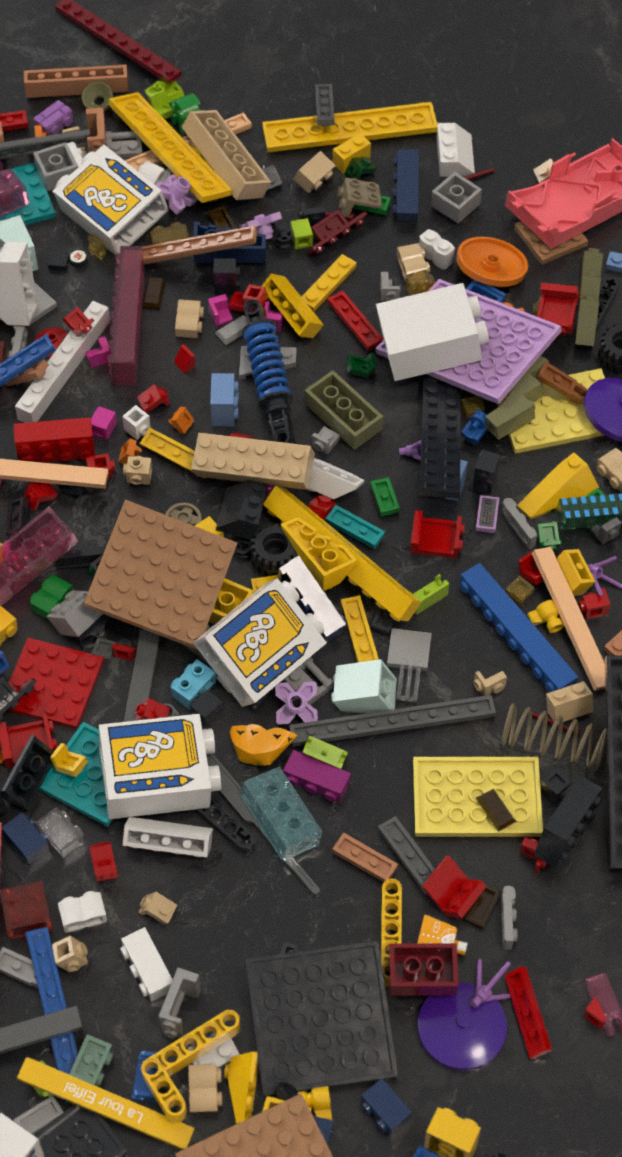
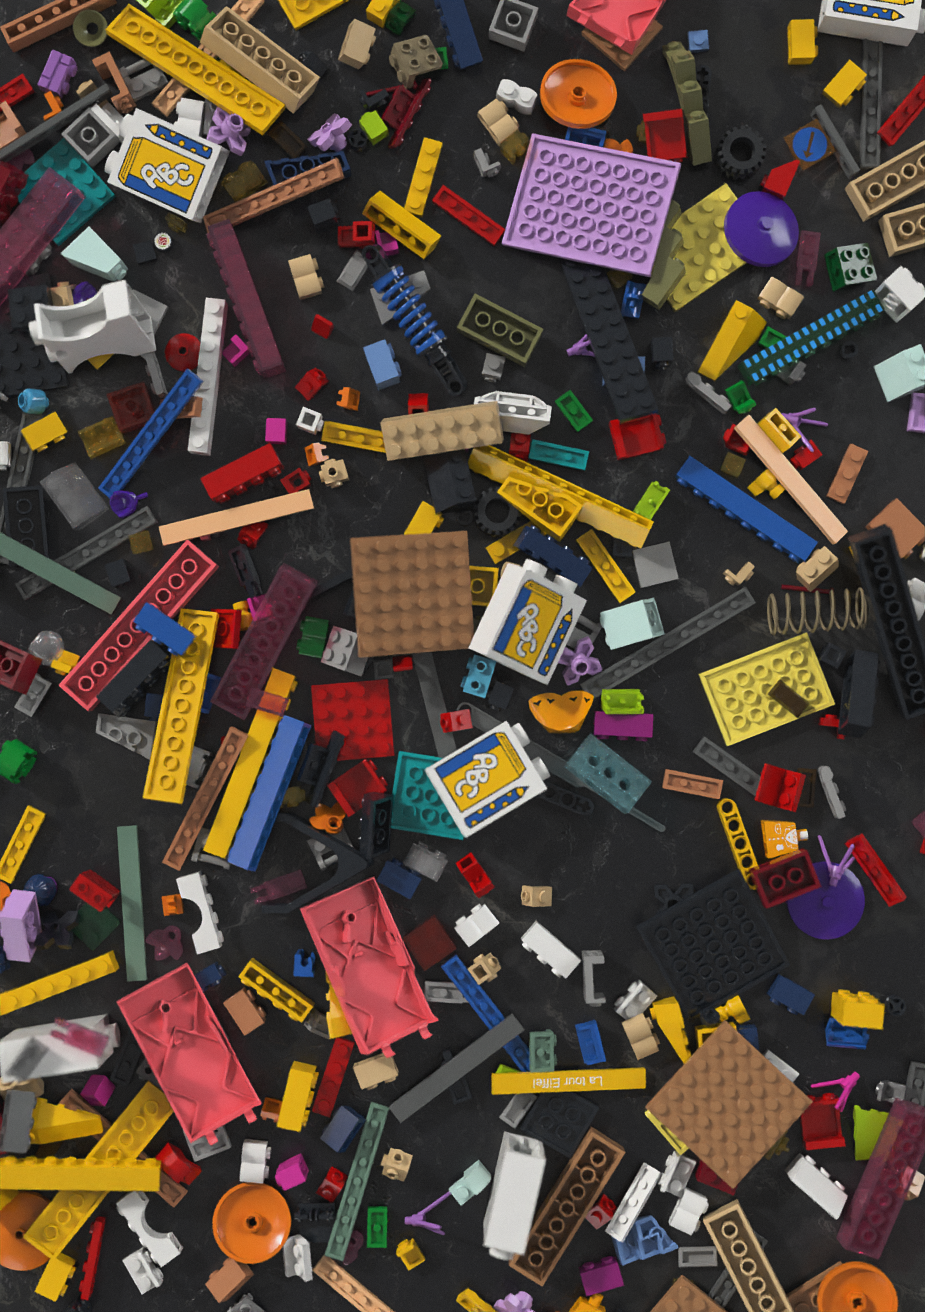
camera: 20 degrees left, 30 degrees up
(68, 762) = (406, 799): yellow bracket -> none
(78, 322) = (208, 335): red bracket -> none
(153, 293) = (256, 255): dark brown tile -> none
(167, 837) = (517, 832): white brick -> none
(185, 1057) = (619, 1024): yellow beam -> none
(186, 514) = (396, 506): dark tan wheel -> none
(219, 310) = (332, 254): dark pink panel -> none
(361, 366) = (495, 268): dark green bracket -> none
(410, 663) = (674, 595): clear tile -> none
(432, 331) = (556, 215): white brick -> none
(487, 514) = (674, 392): tile -> none
(561, 383) = (697, 224): dark orange hinge -> none

